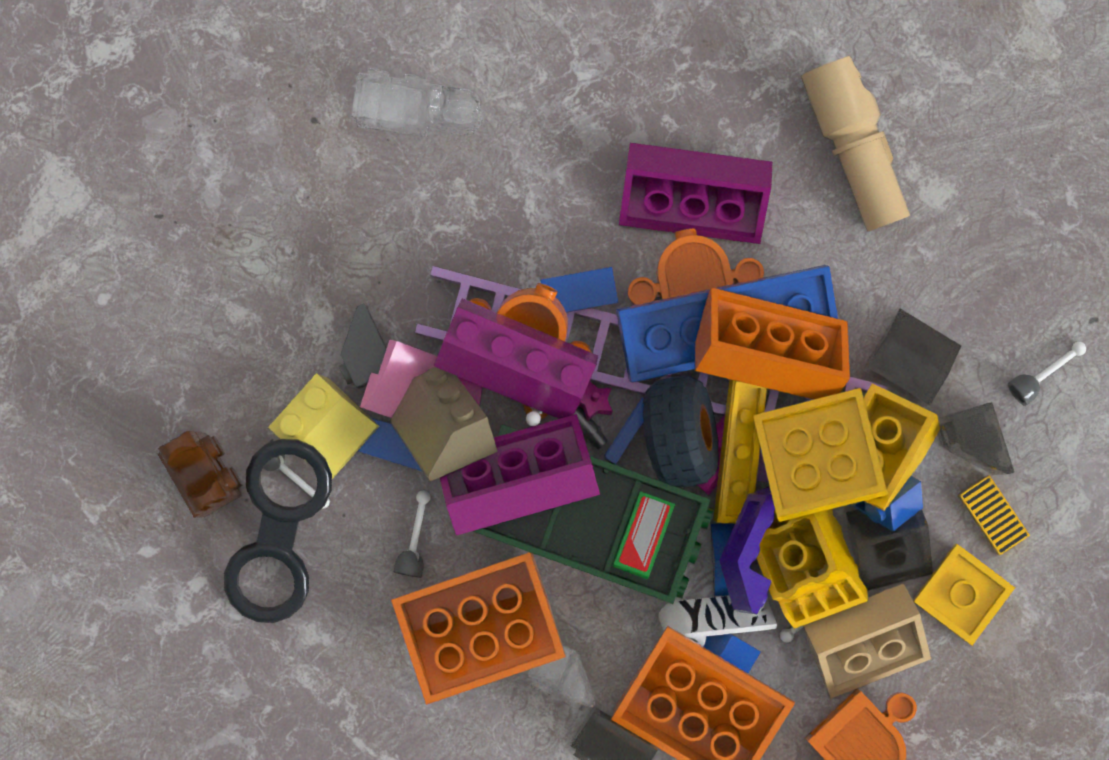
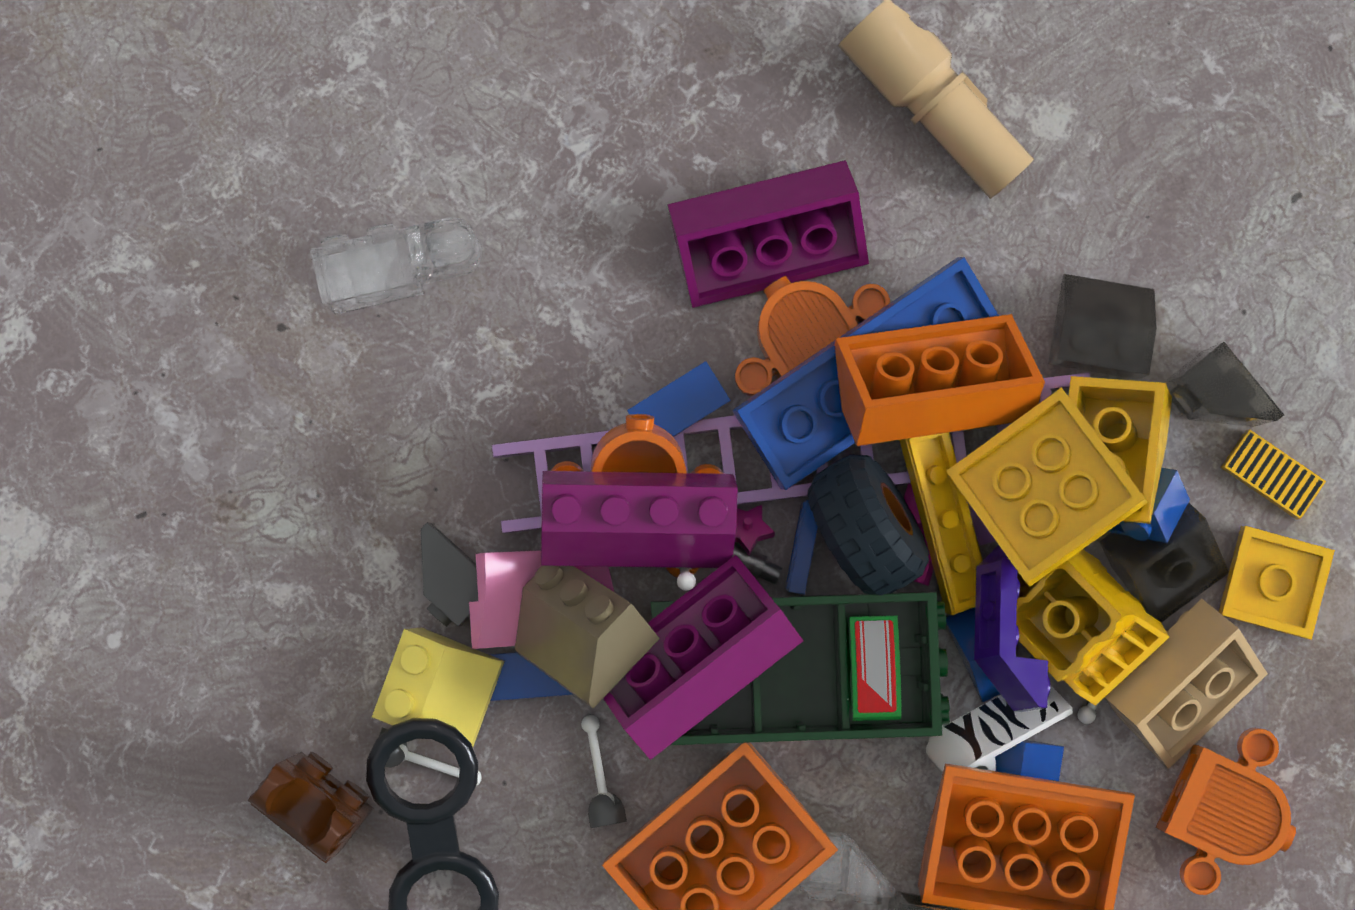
camera: 25 degrees left, 0 degrees up
(1026, 387) = (1251, 307): hinge -> none

